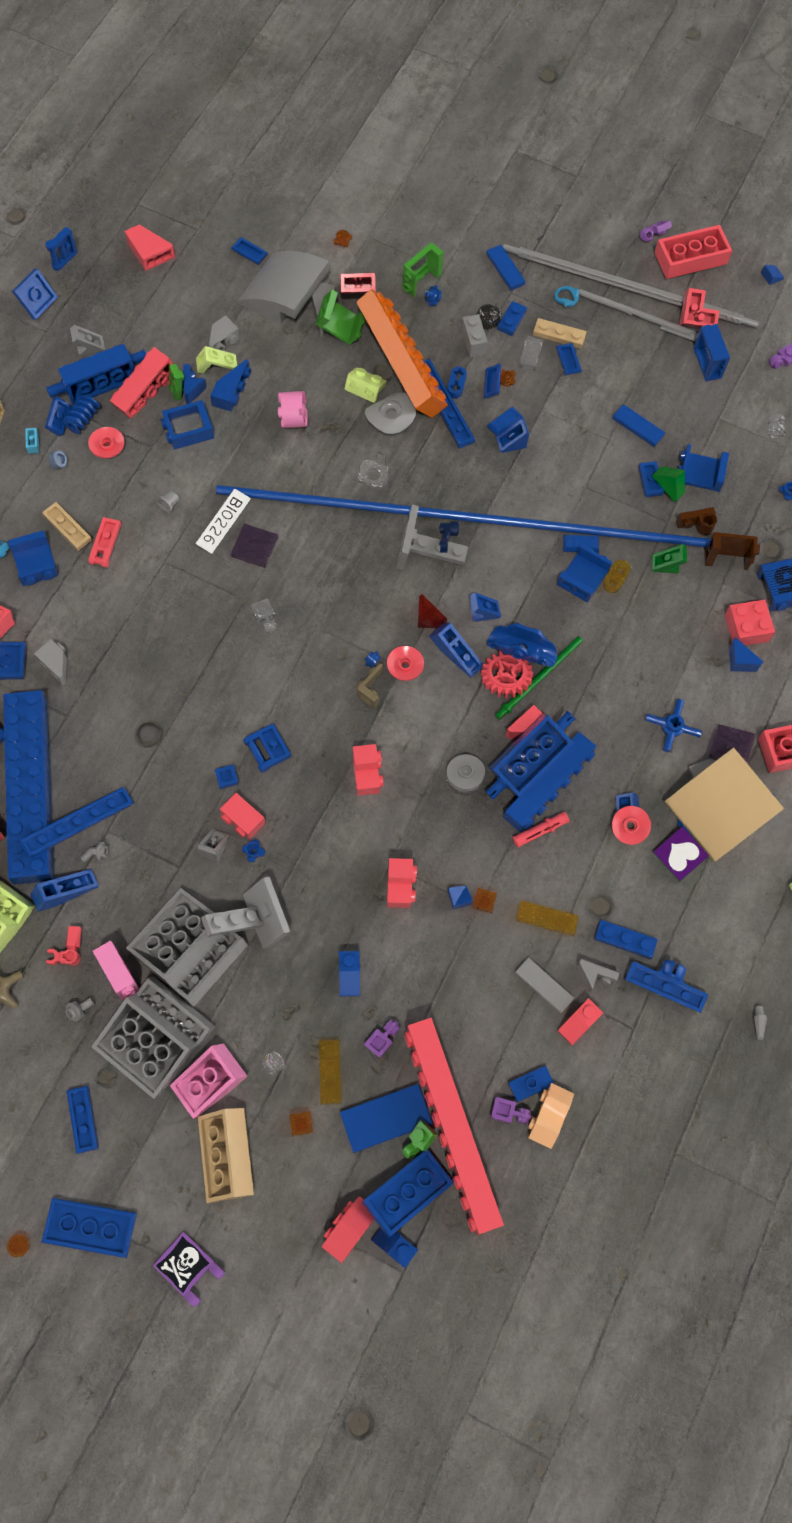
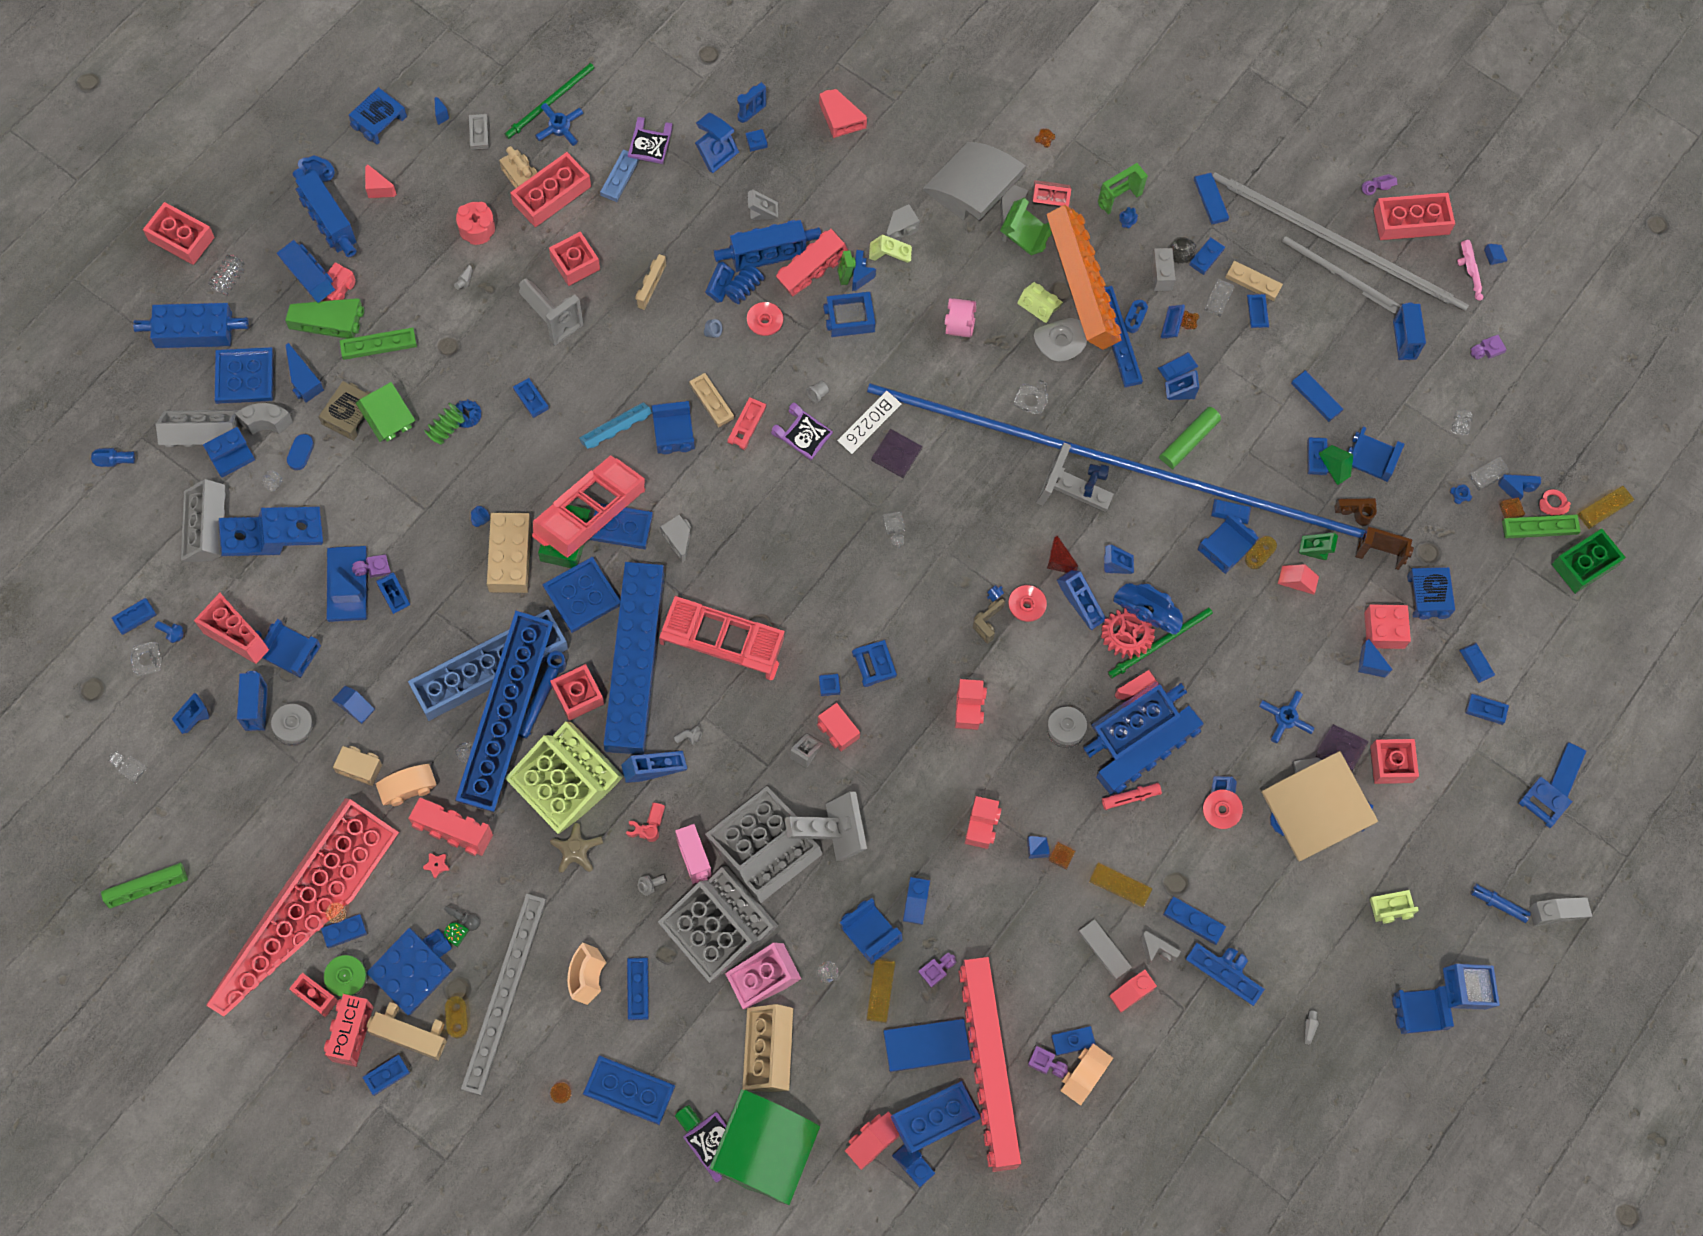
camera: 10 degrees right, 0 degrees up
(23, 1115) = (585, 973): none -> light nougat brick
(29, 273) = (715, 126): none -> blue slope
(32, 440) = (690, 303): medium azure piece -> none
(72, 283) = (756, 140): none -> blue plate
(75, 822) = (676, 703): blue tile -> none
(150, 758) = (759, 649): none -> coral piece
(154, 1245) = (688, 1118): none -> green gear
(162, 543) = (805, 433): none -> flag
(227, 389) = (896, 283): blue slope -> none
(237, 1262) = (764, 1147): none -> green slope
(249, 250) = (945, 134): blue tile -> none
(251, 856) = (837, 760): blue plate -> none
(301, 1123) = (844, 1034): clear orange plate -> none
(308, 1013) = (870, 931): none -> blue panel
(421, 1138) = (957, 1069): bright green plate -> none
(530, 482) = (1190, 437): none -> bright green brick
(567, 302) = (1268, 248): dark azure piece -> none
(657, 593) = (1299, 578): none -> coral slope
(681, 854) = (1267, 847): tile -> none
(693, 313) = (1399, 284): coral brick -> none
(755, 289) = (1472, 268): none -> bright pink piece

